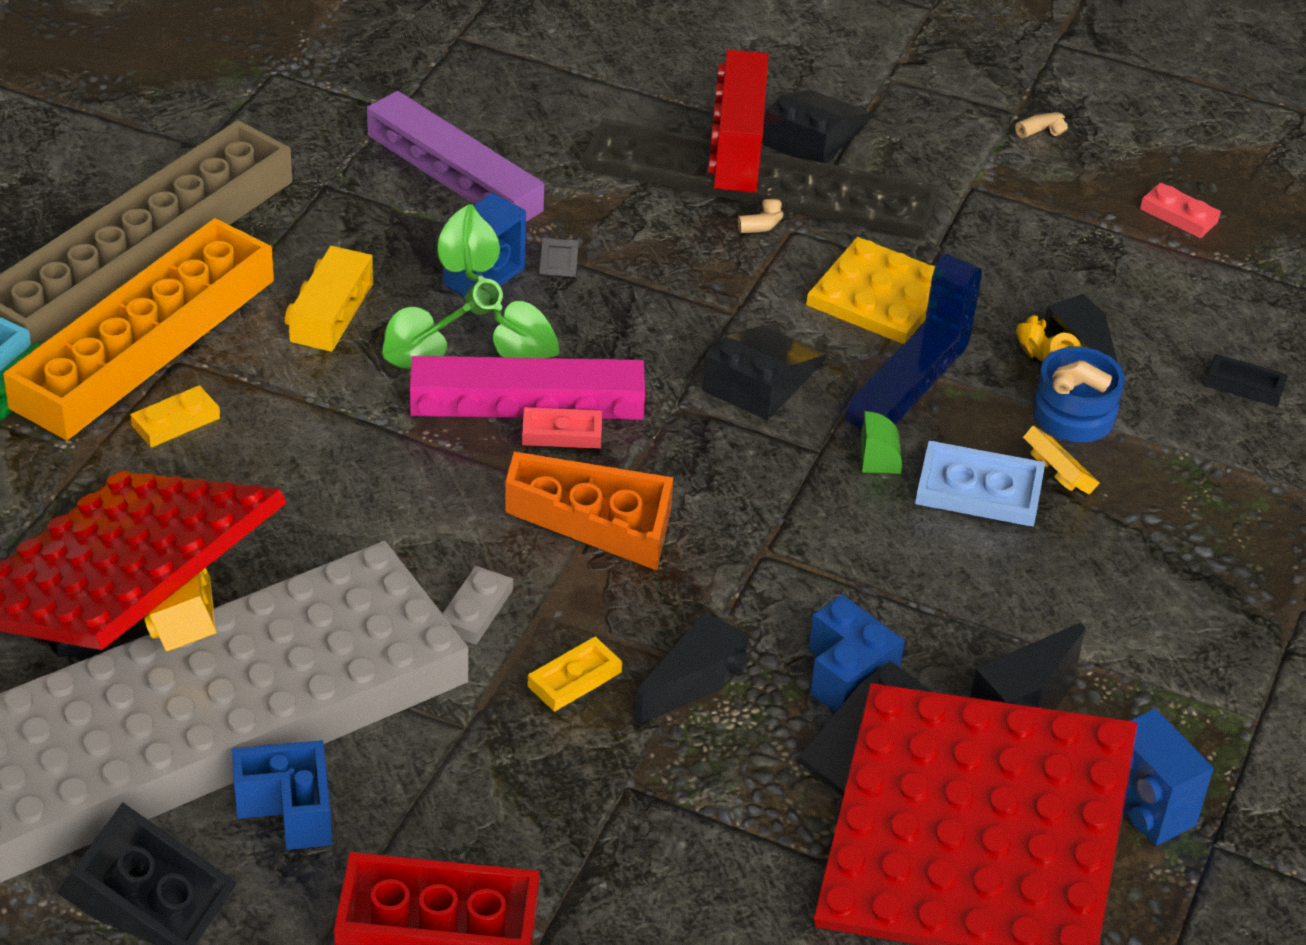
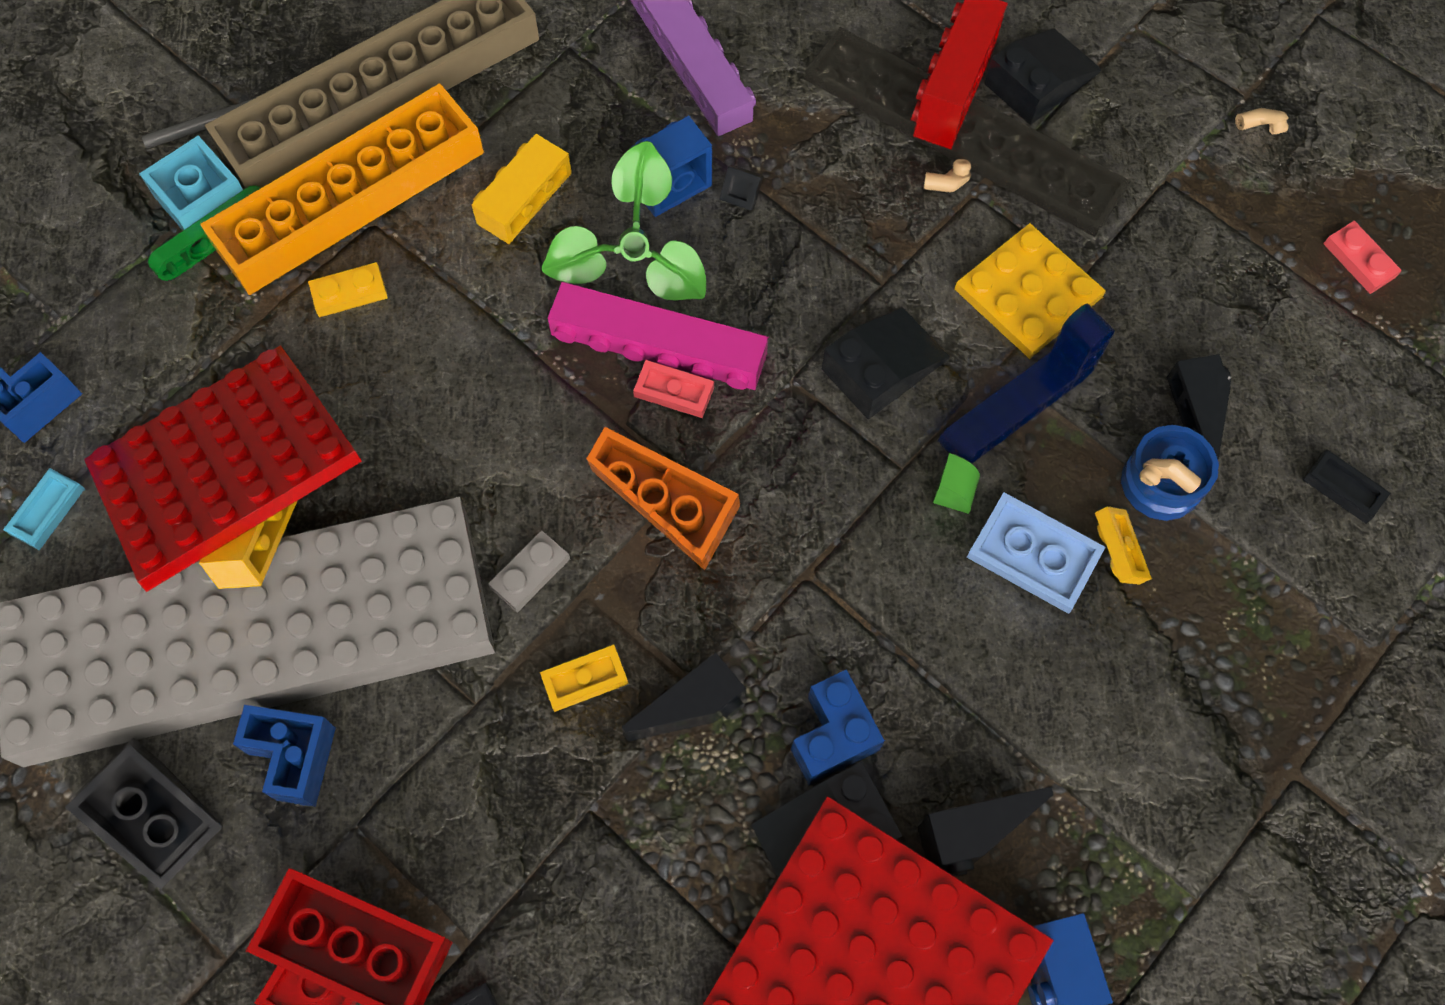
camera: 20 degrees right, 25 degrees up
(1036, 344) = (1164, 409): yellow arm -> none

